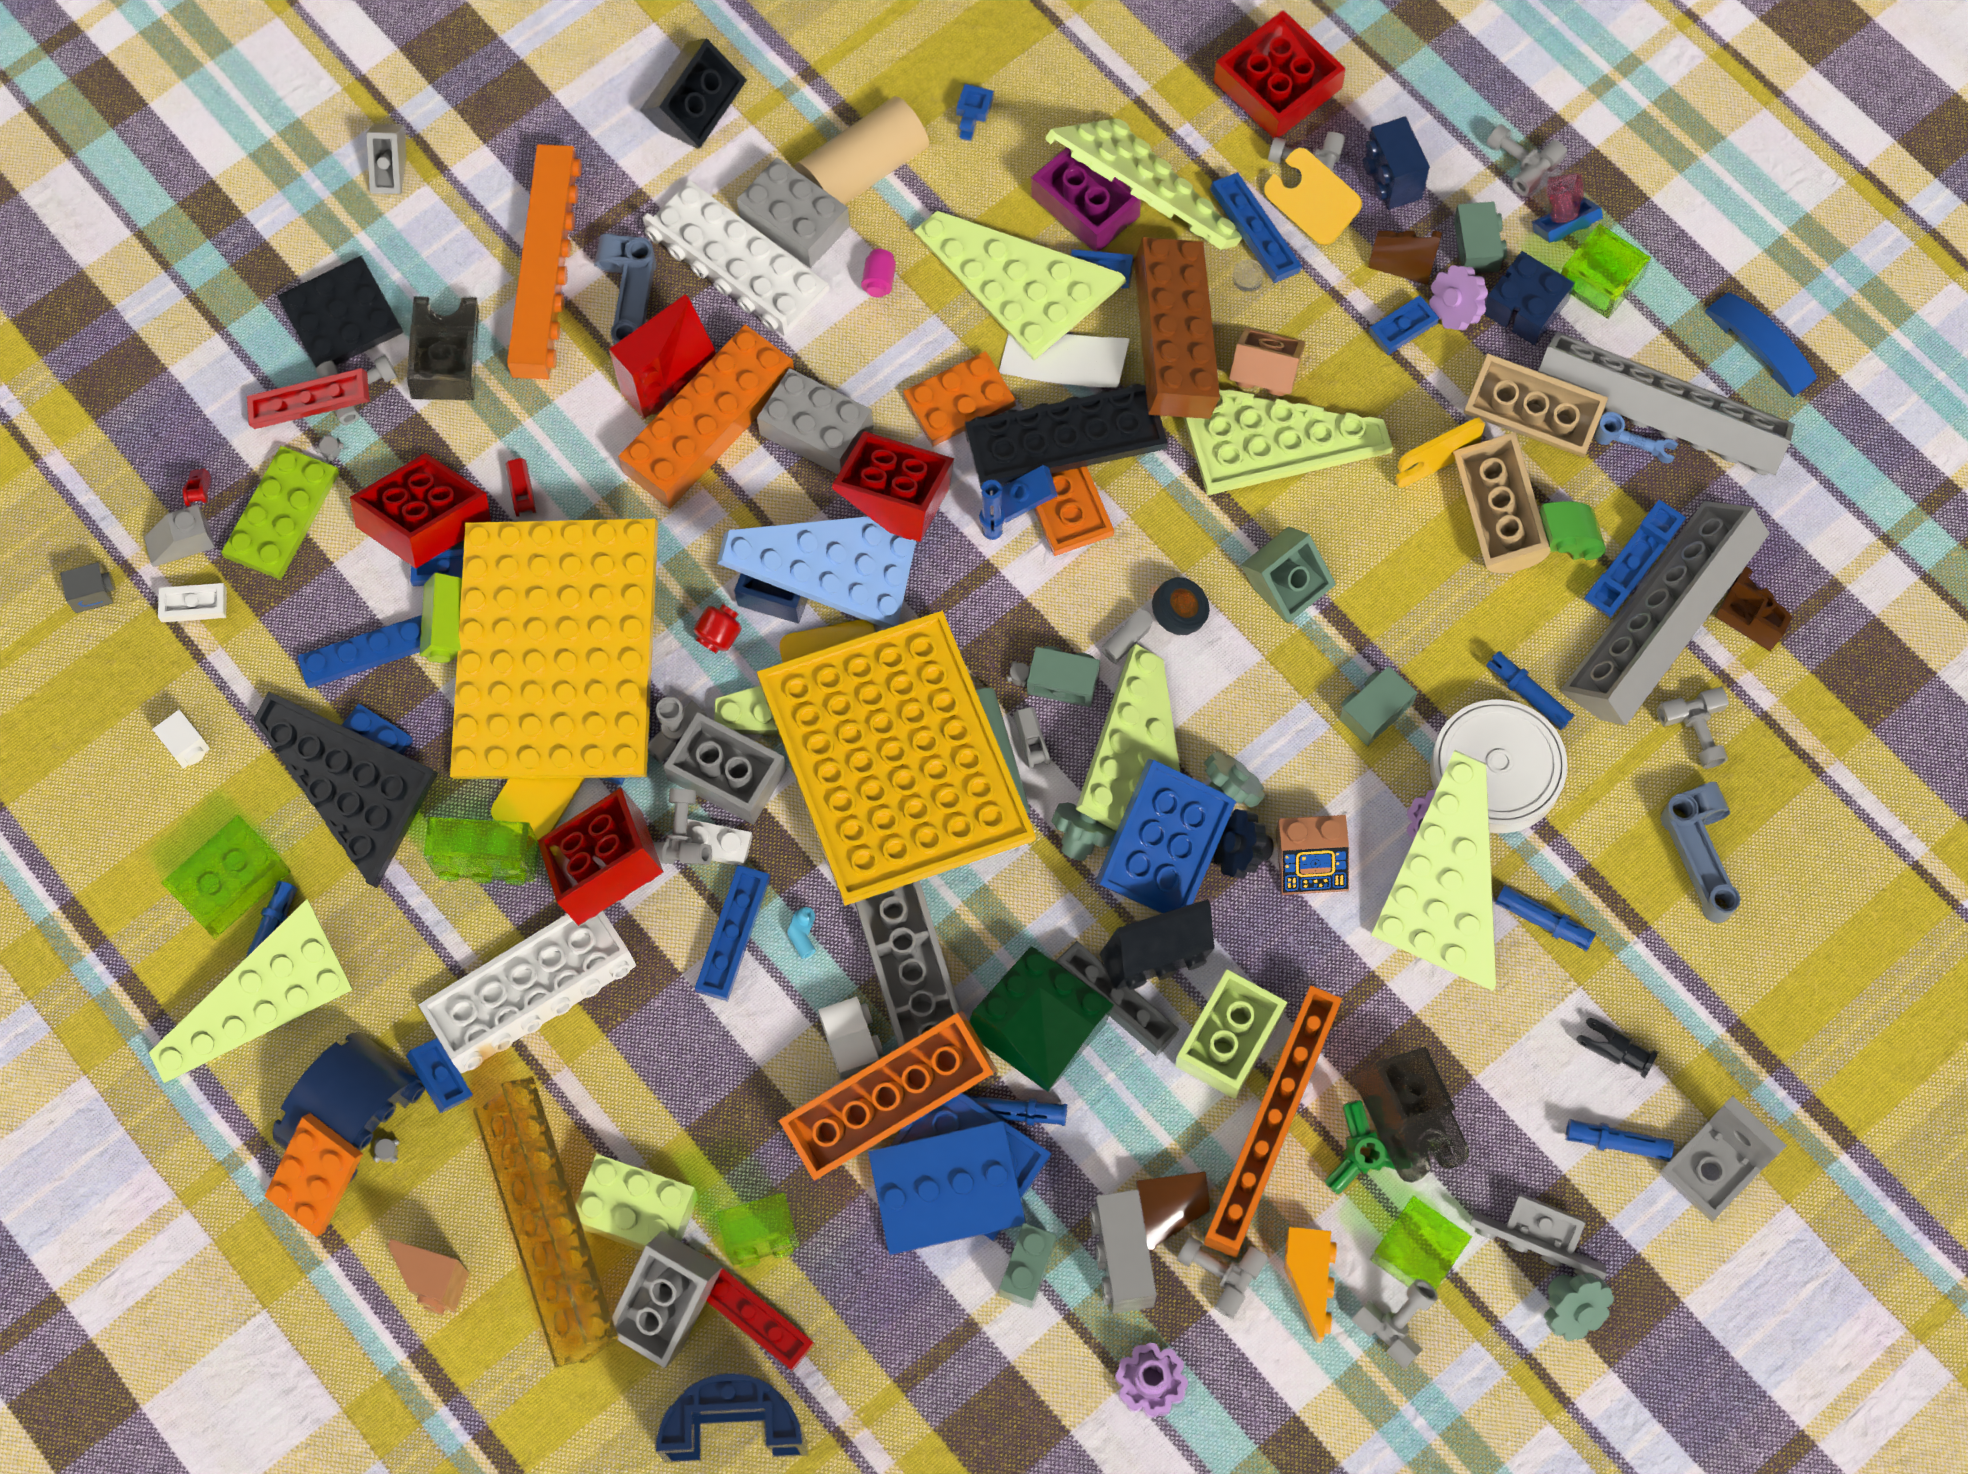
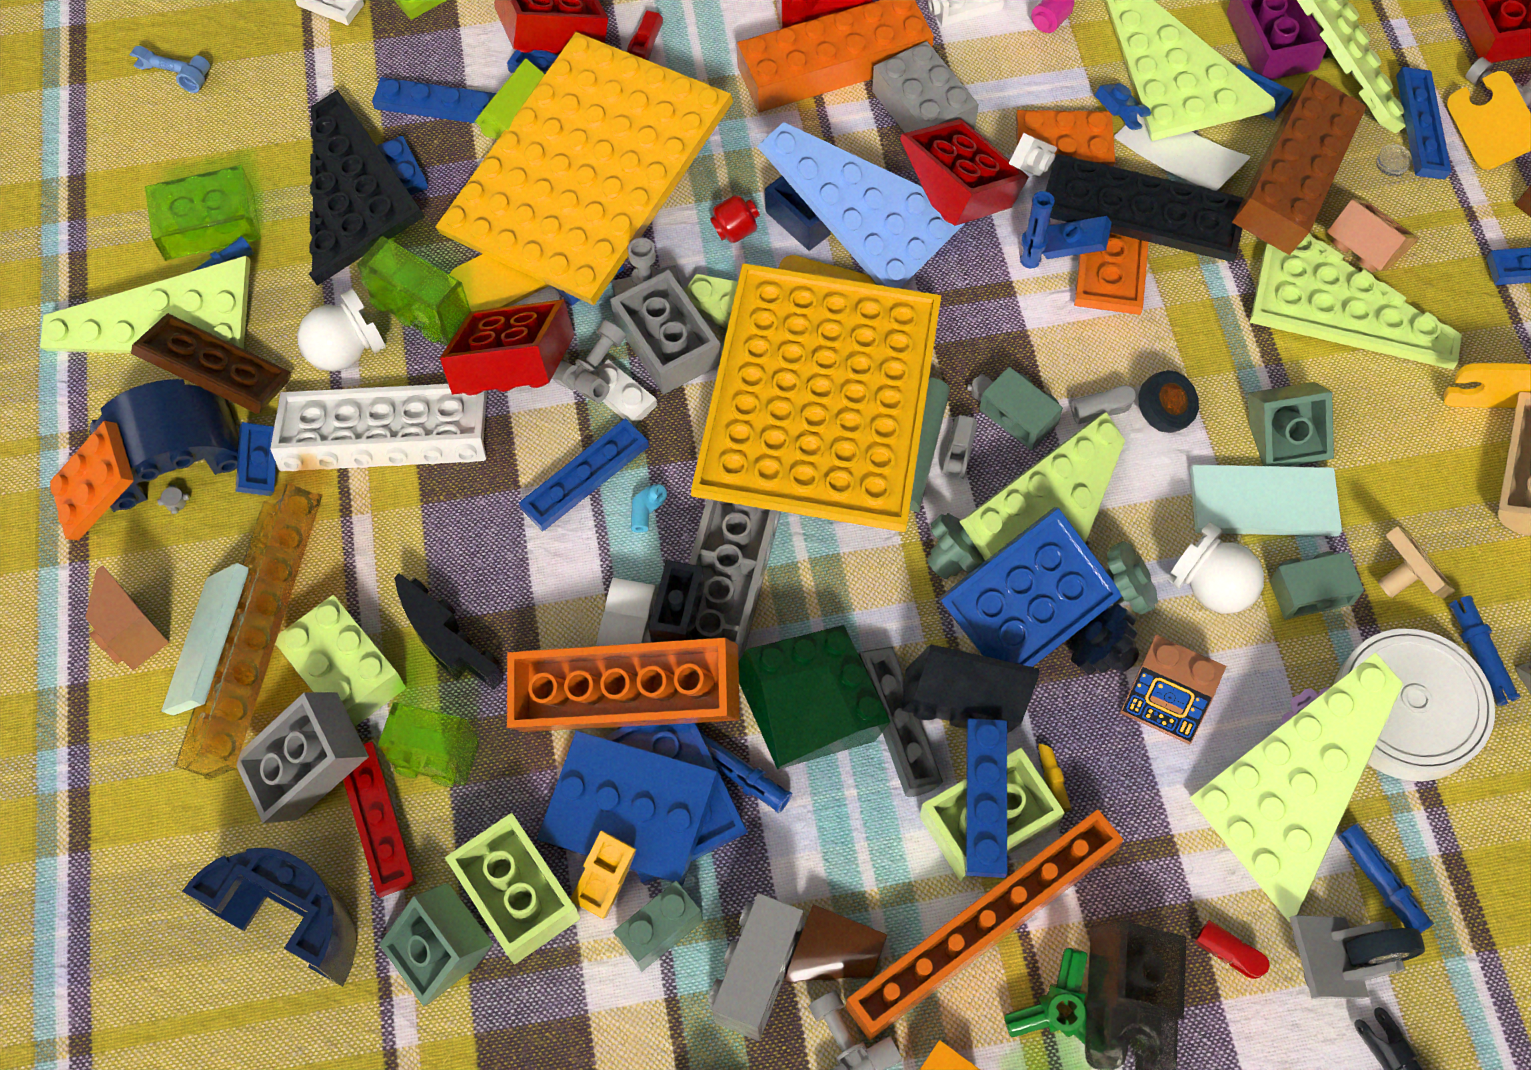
camera: 30 degrees right, 5 degrees down
(109, 744) = (189, 75): none -> medium blue brick
(181, 739) = (246, 93): white brick -> none
(345, 1013) = (211, 363): none -> reddish brown tile
(437, 927) = (336, 335): none -> white tile
(509, 1251) = (205, 640): none -> light aqua tile
(690, 1133) = (441, 635): none -> black slope
(861, 1379) = (435, 942): none -> sand green slope
(893, 1005) = (677, 602): none -> black brick
(897, 1302) = (513, 888): none -> yellowish green brick
(948, 436) = (1033, 155): none -> white plate
(961, 1251) = (603, 874): none -> yellow slope
(989, 338) = (1119, 101): none -> blue plate
(1223, 1024) = (986, 798): none -> blue plate
(1259, 975) = (1054, 776): none -> yellow piece
(1300, 651) = (1266, 500): none -> light aqua tile
(1303, 738) = (1220, 574): none -> white tile
(1446, 648) = (1415, 566): none -> tan tile
(1462, 1036) = (1232, 951): none -> red bar
(1538, 1001) = (1334, 951): none -> light grey plate

